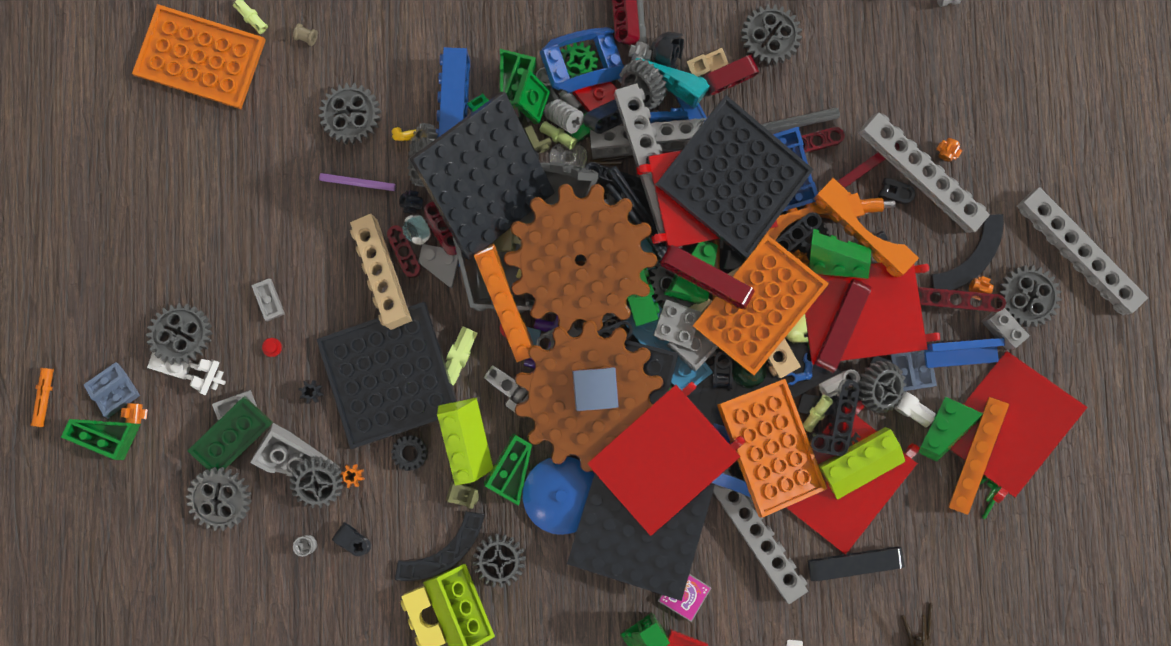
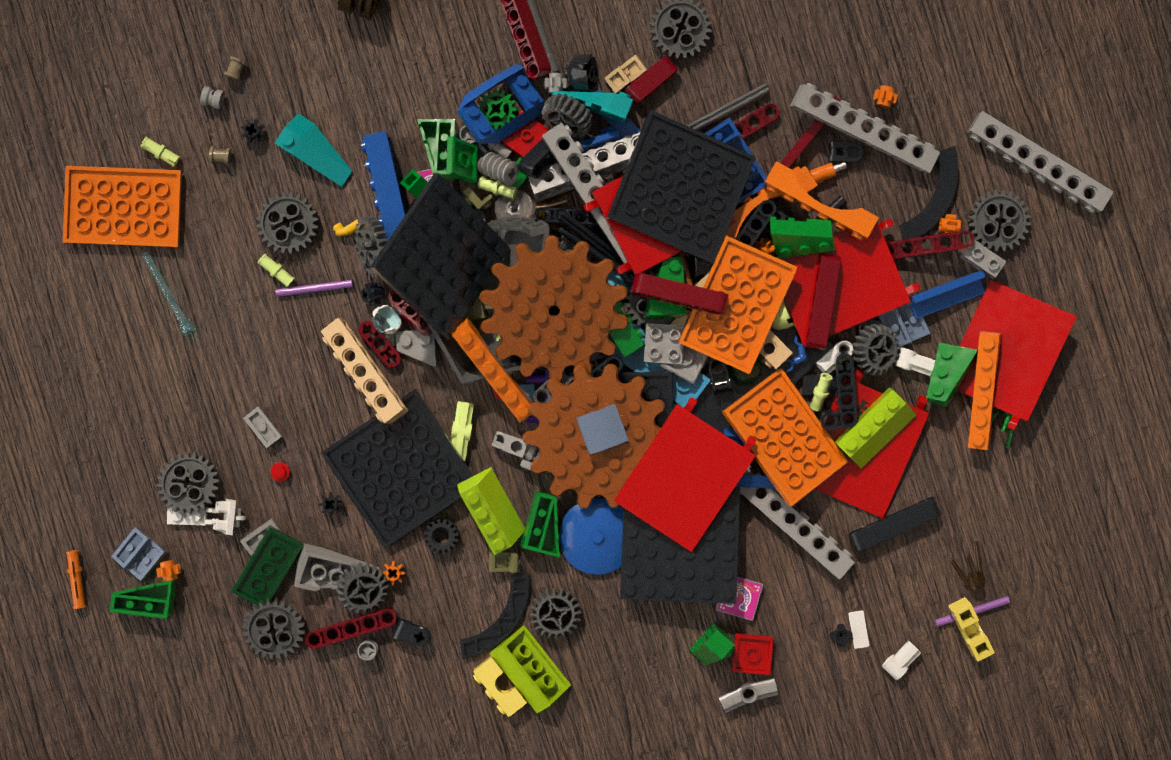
camera: 10 degrees left, 5 degrees up
(223, 183) = (185, 325): none -> clear light blue piece
(285, 518) = (343, 633): none -> dark red beam
(325, 154) = (276, 270): none -> yellowish green pin
(338, 19) = (256, 136): none -> black gear
(393, 50) = (309, 145): none -> teal wedge

